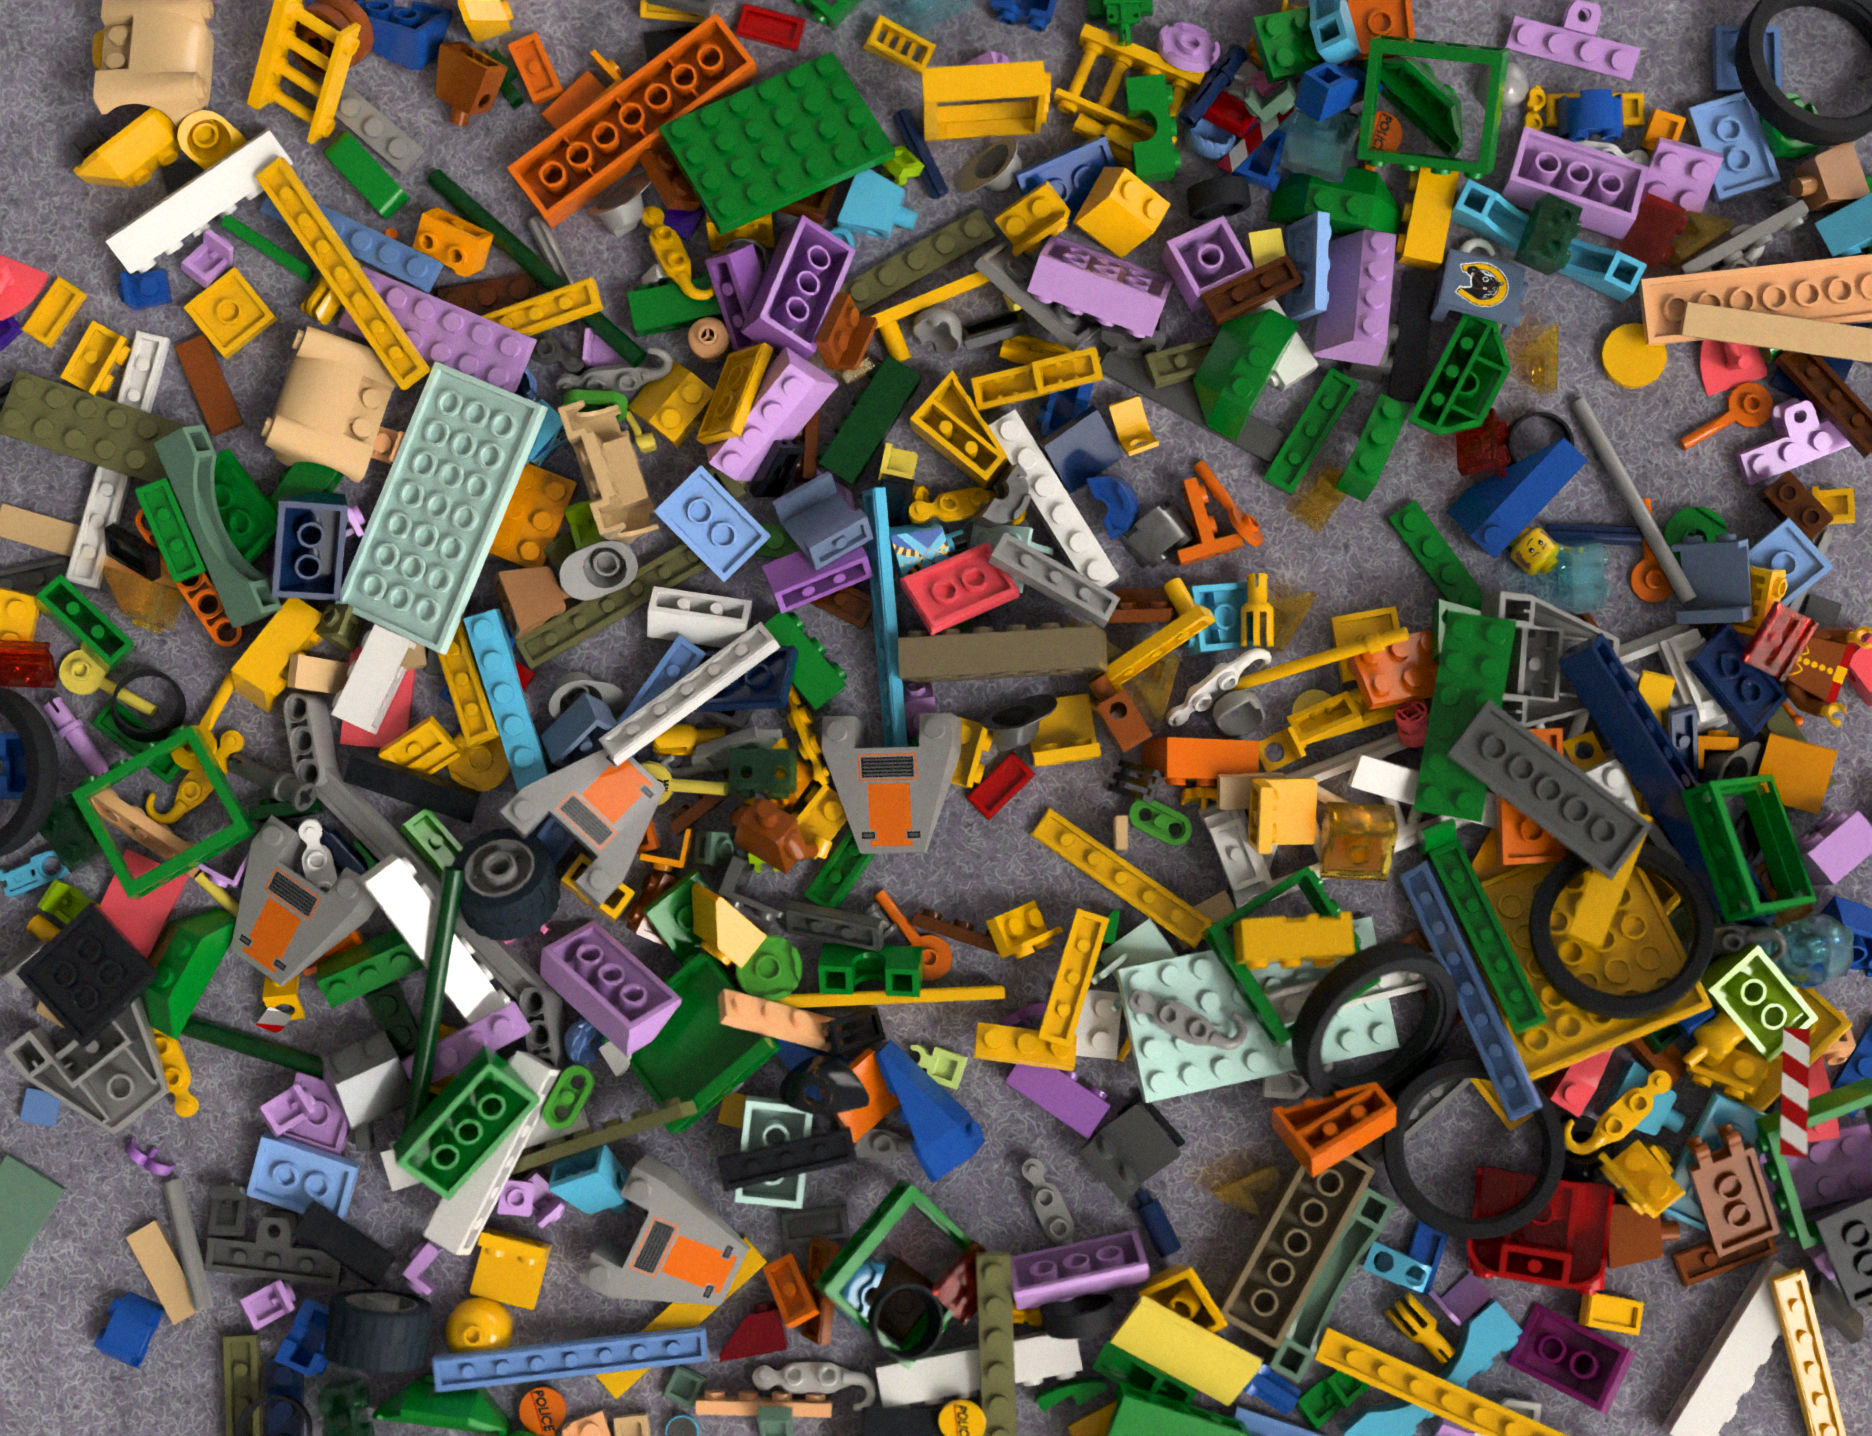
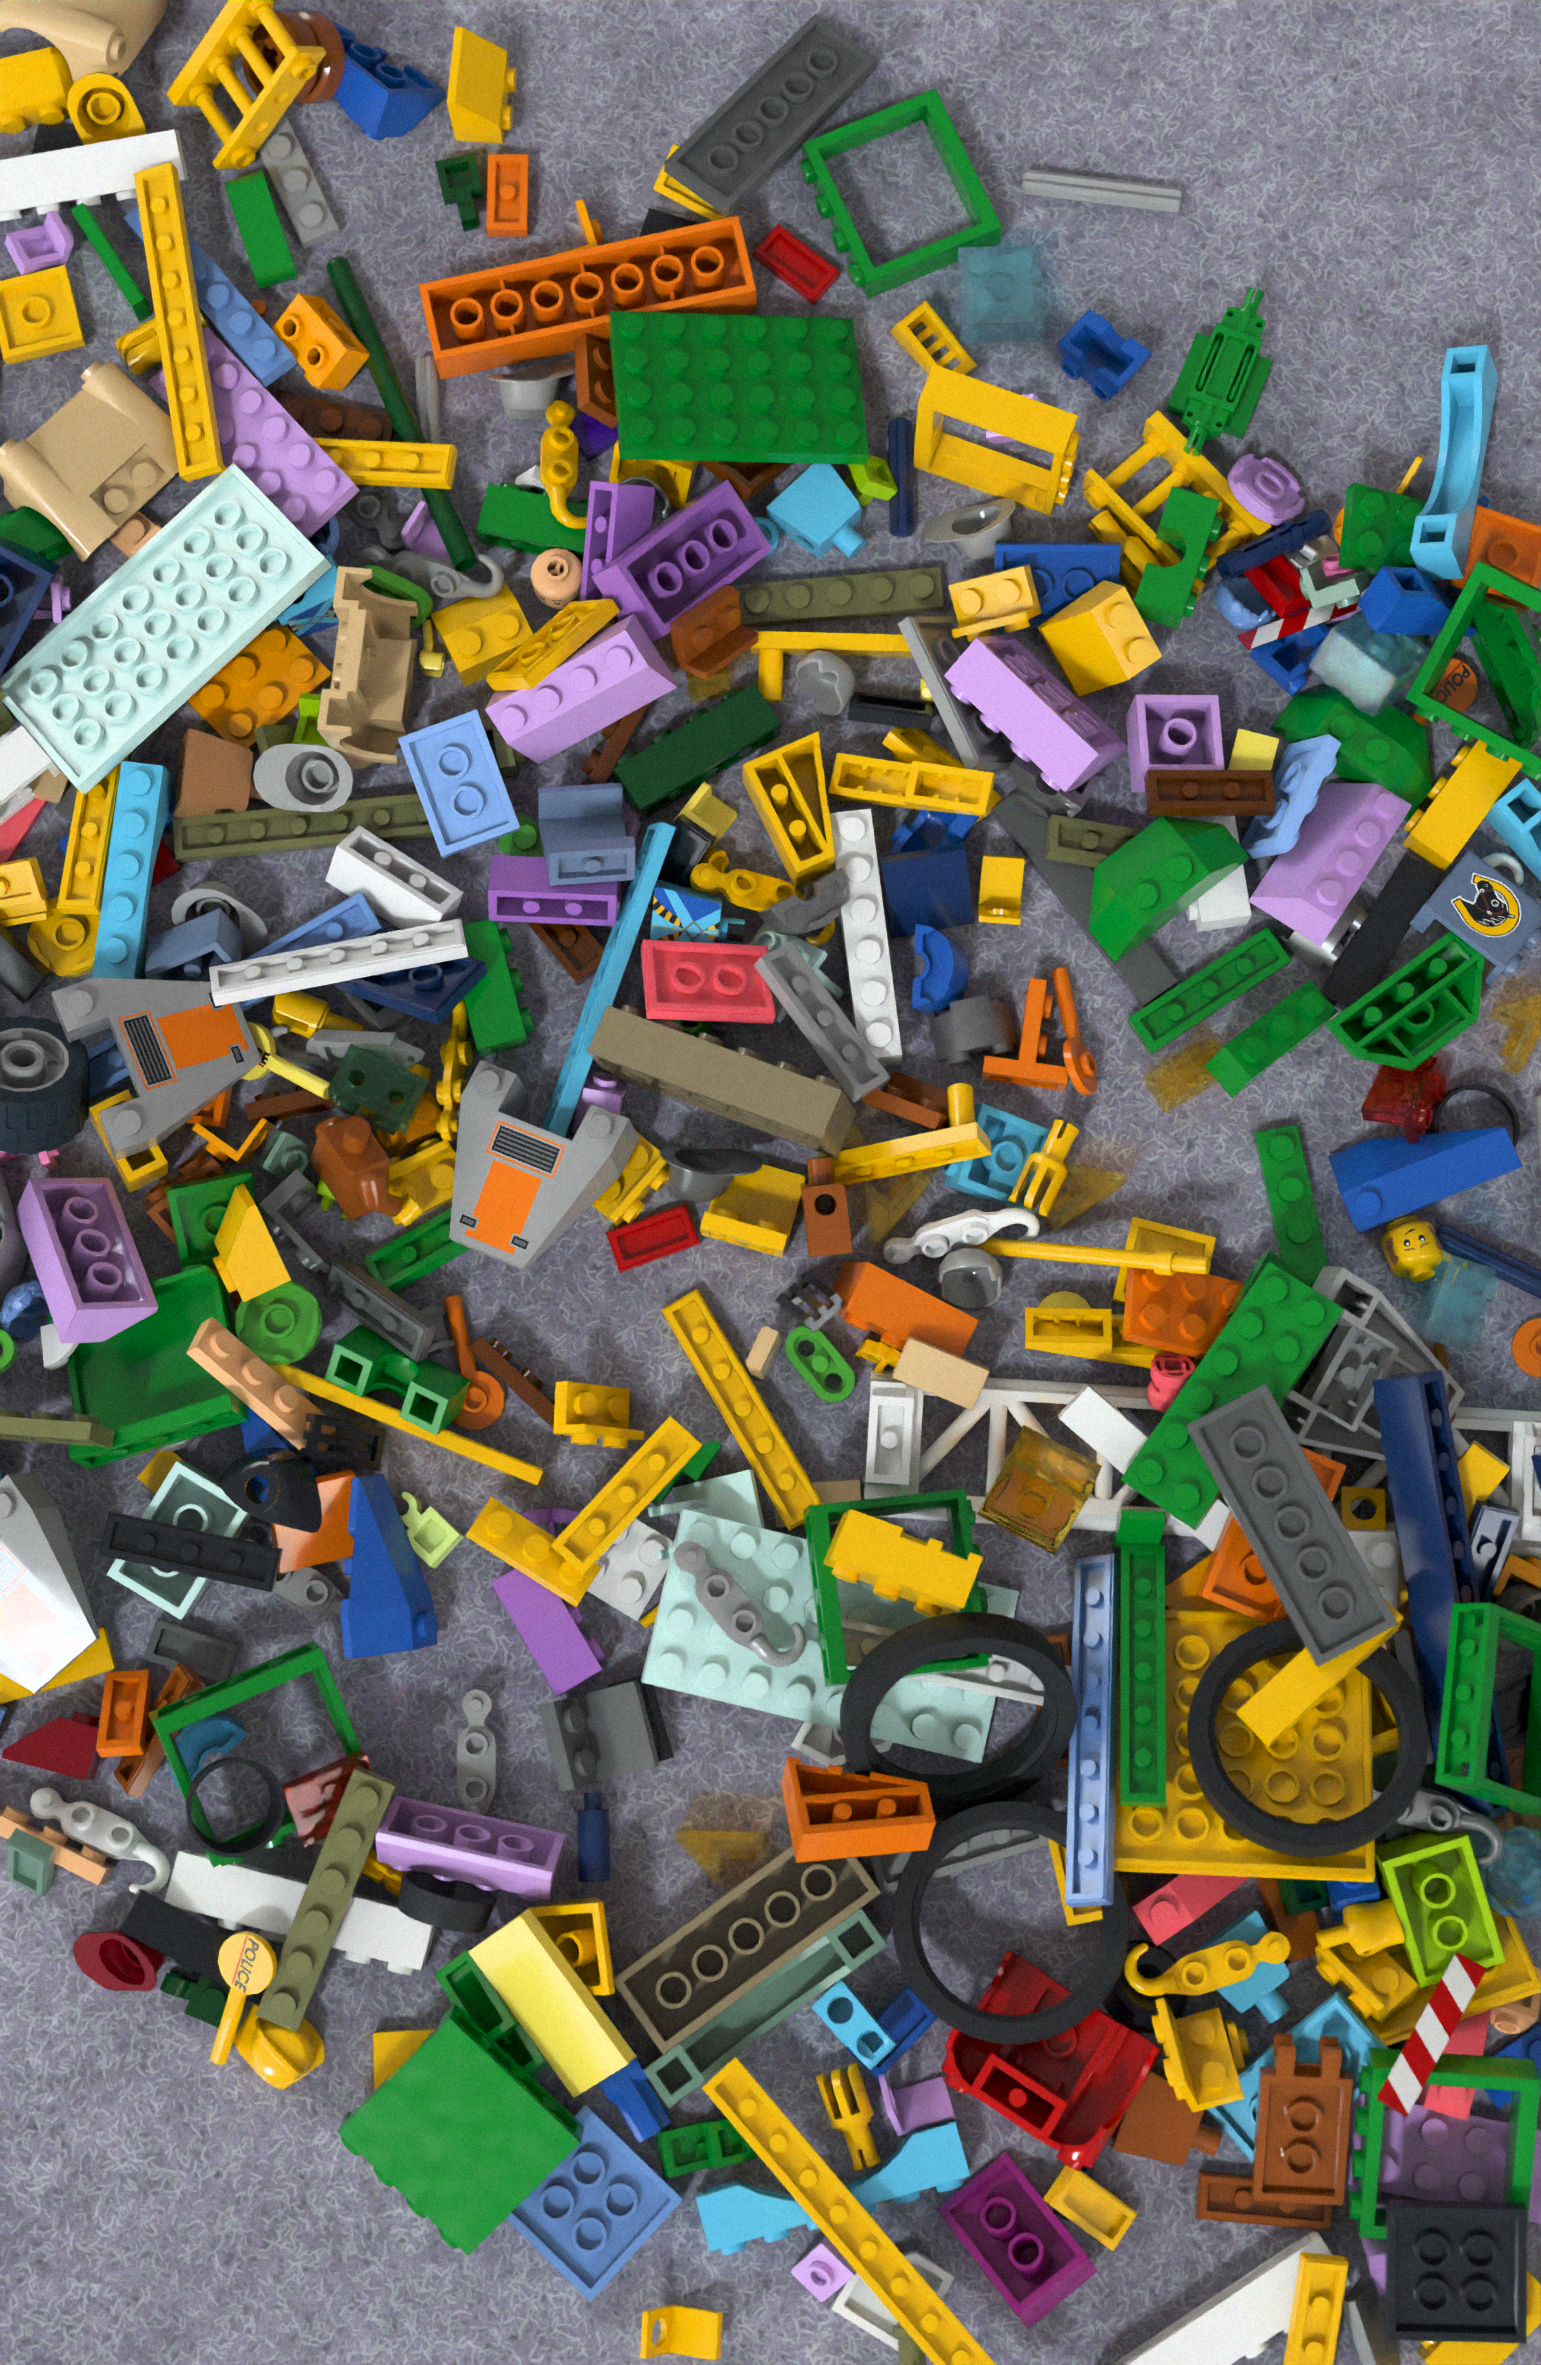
camera: 30 degrees right, 5 degrees down
(467, 80) = (422, 173): dark orange torso -> none
(573, 101) = (533, 245): orange tile -> none
(777, 468) = (558, 753): black tile -> none
(904, 1307) = (238, 1792): dark brown tile -> none
(1081, 1389) = (407, 1993): green slope -> none
(1218, 197) = (1222, 672): black tyre -> none
(1281, 812) = (965, 1413): yellow bracket -> none
(1292, 749) = (1016, 1347): yellow bracket -> none

